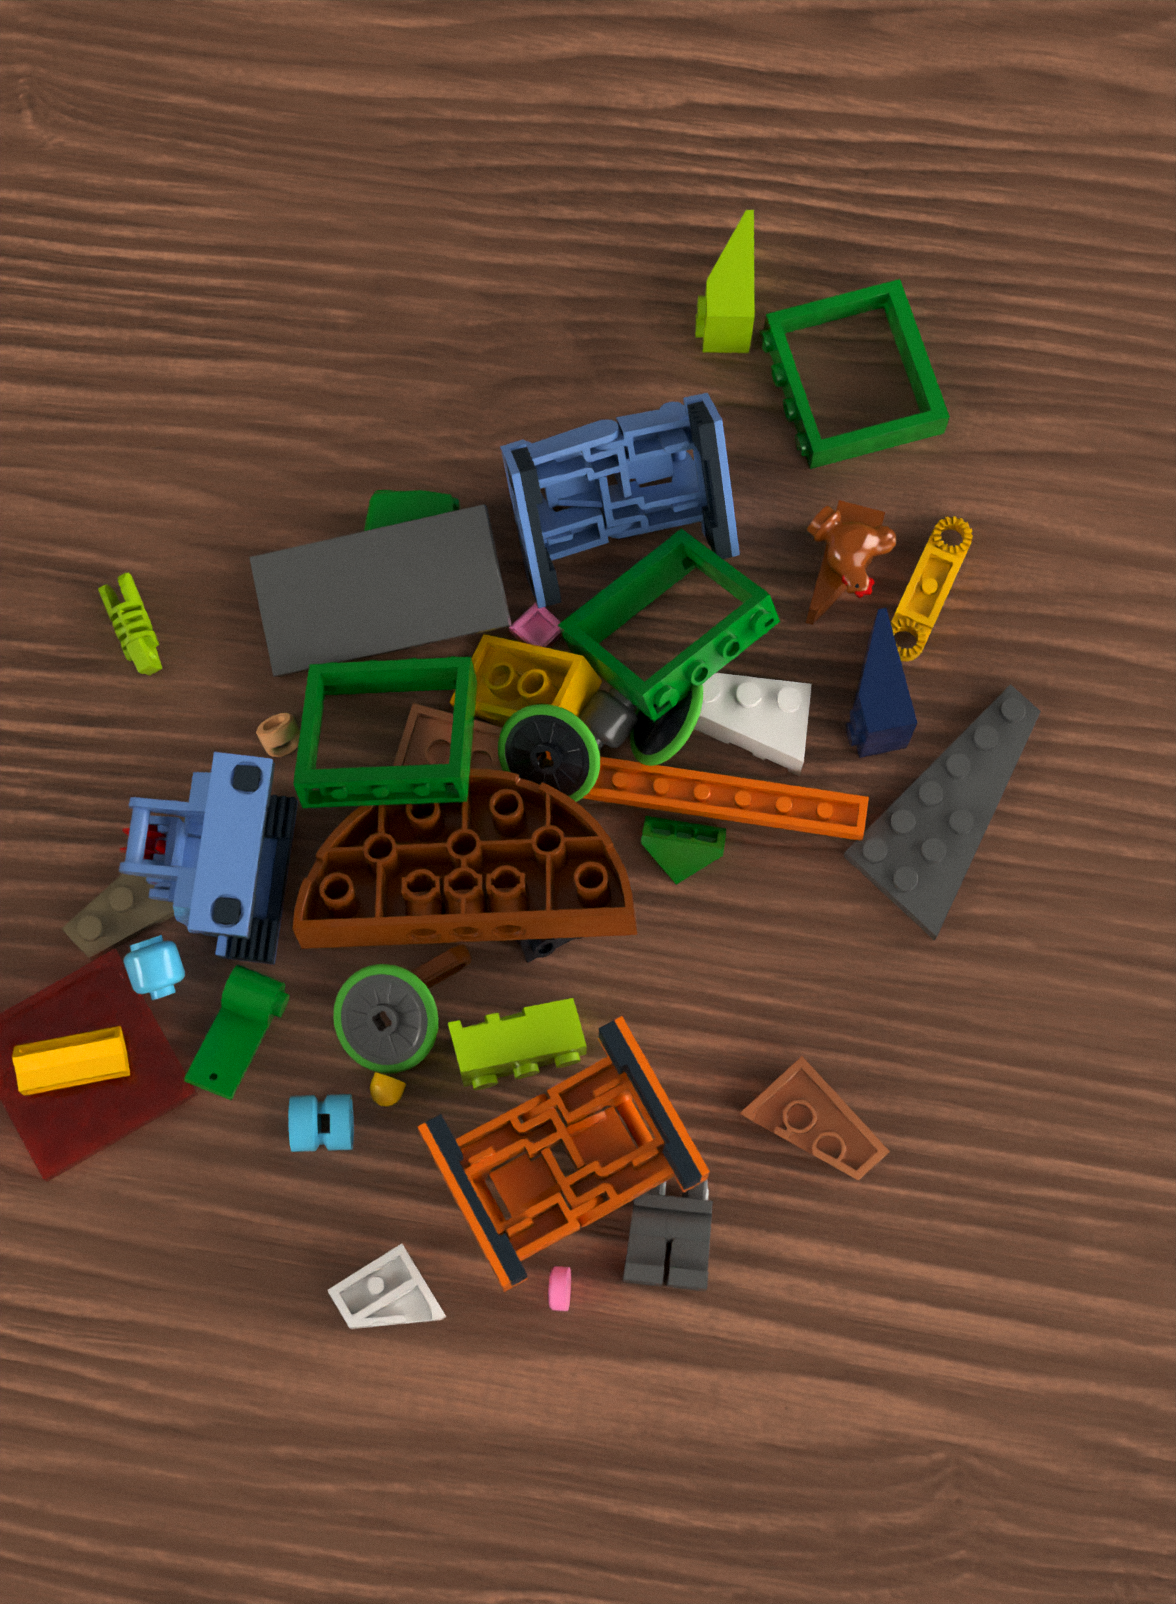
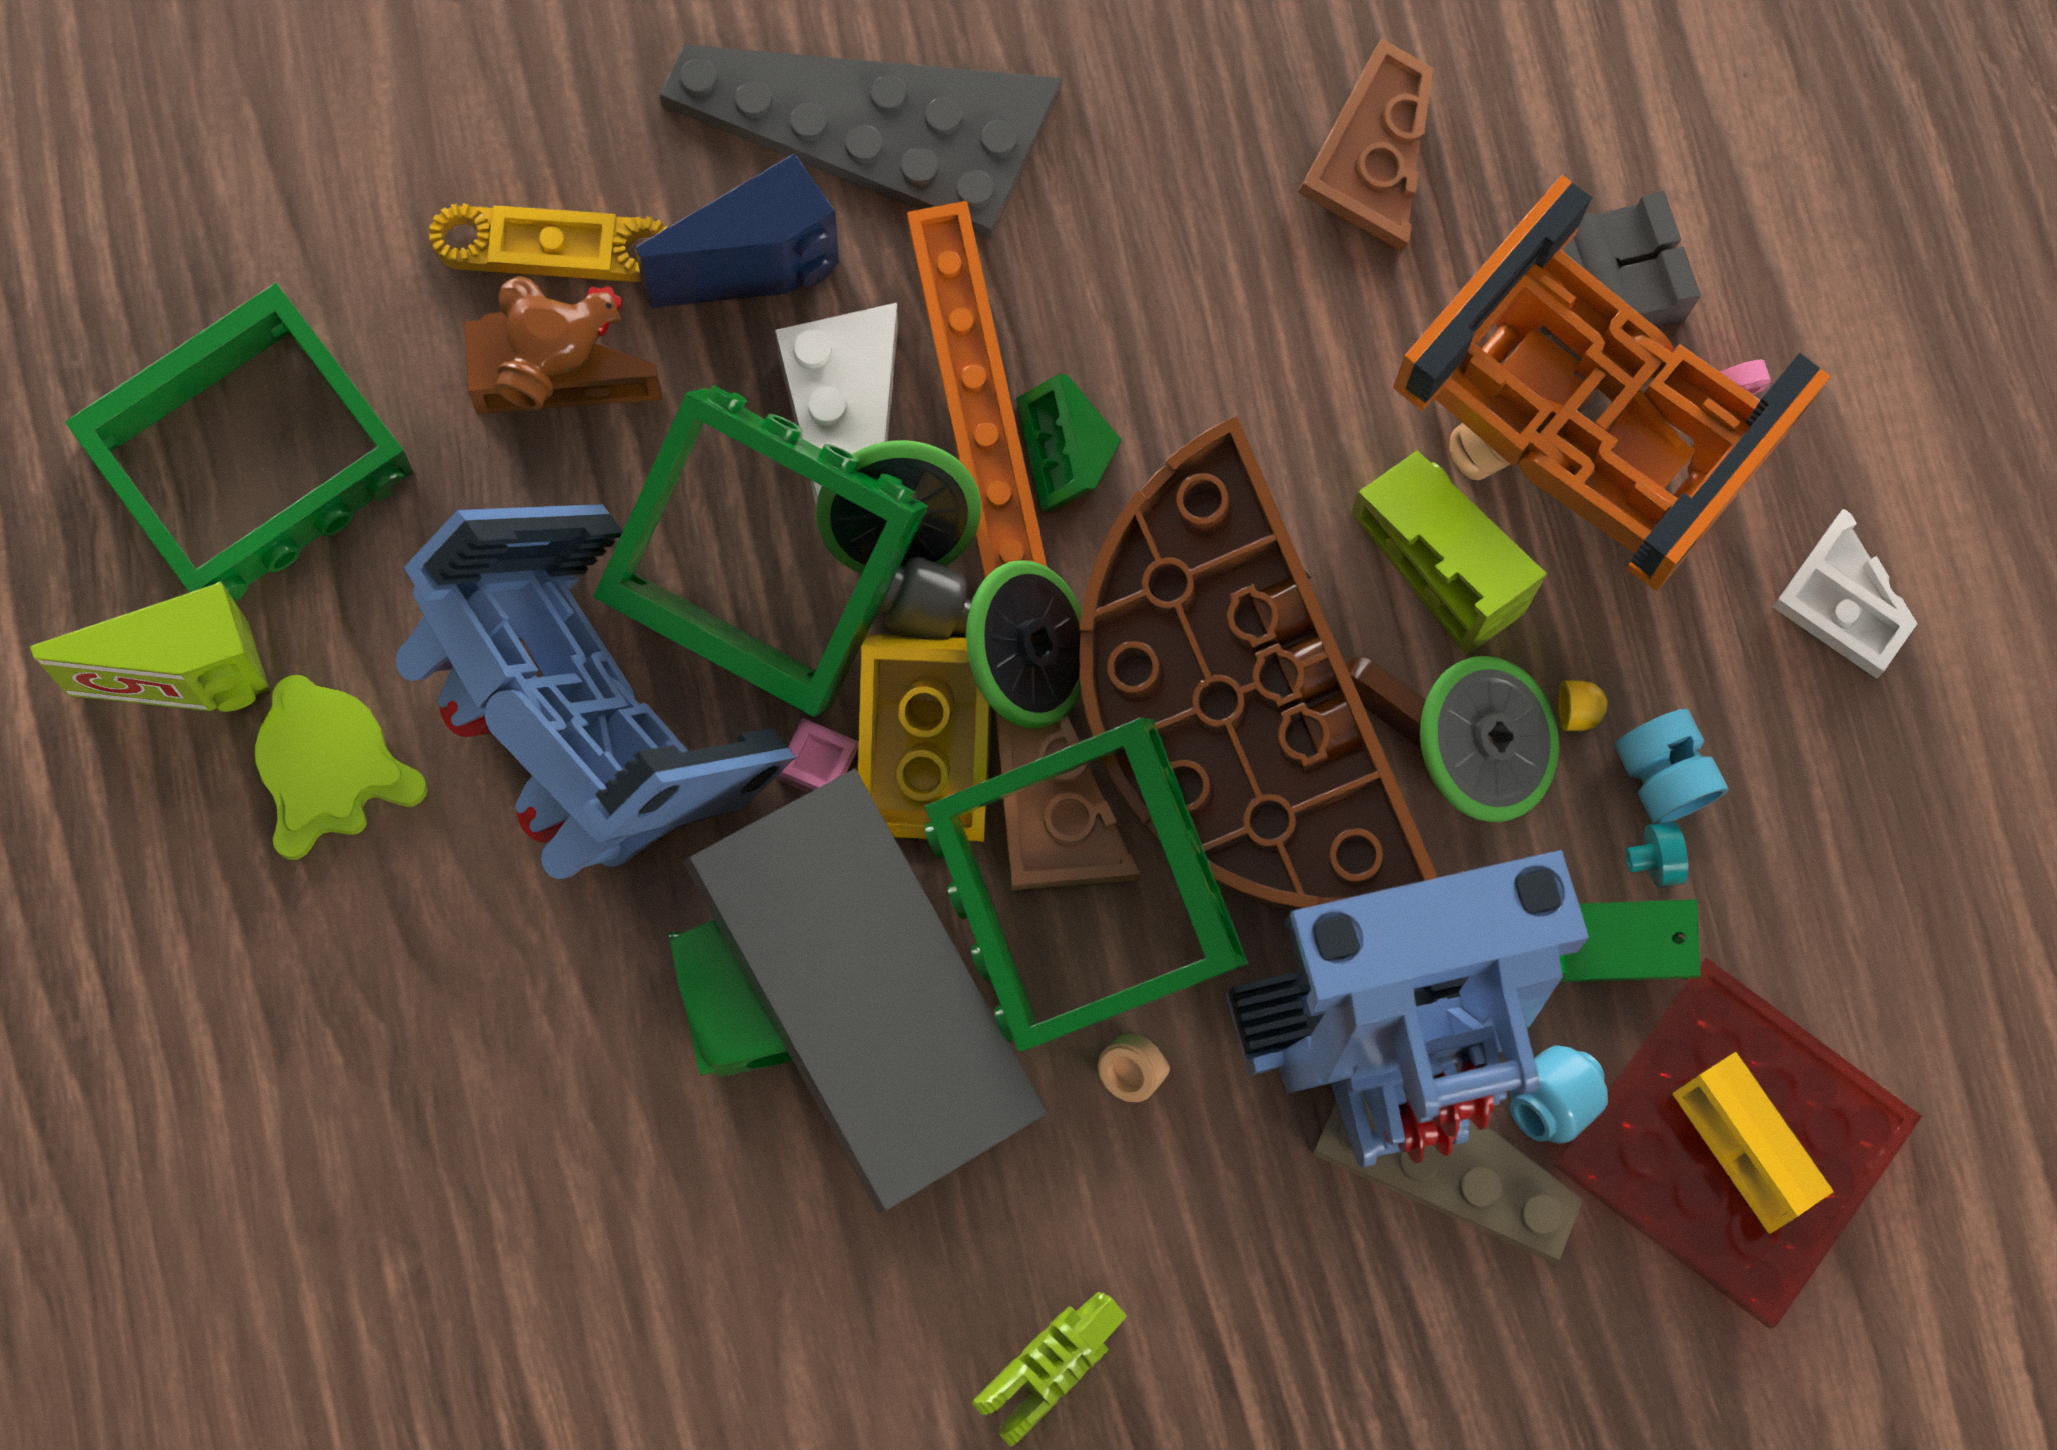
camera: 115 degrees left, 0 degrees up
(271, 1094) = (1662, 855): none -> teal tile
(644, 364) = (323, 762): none -> lime tile

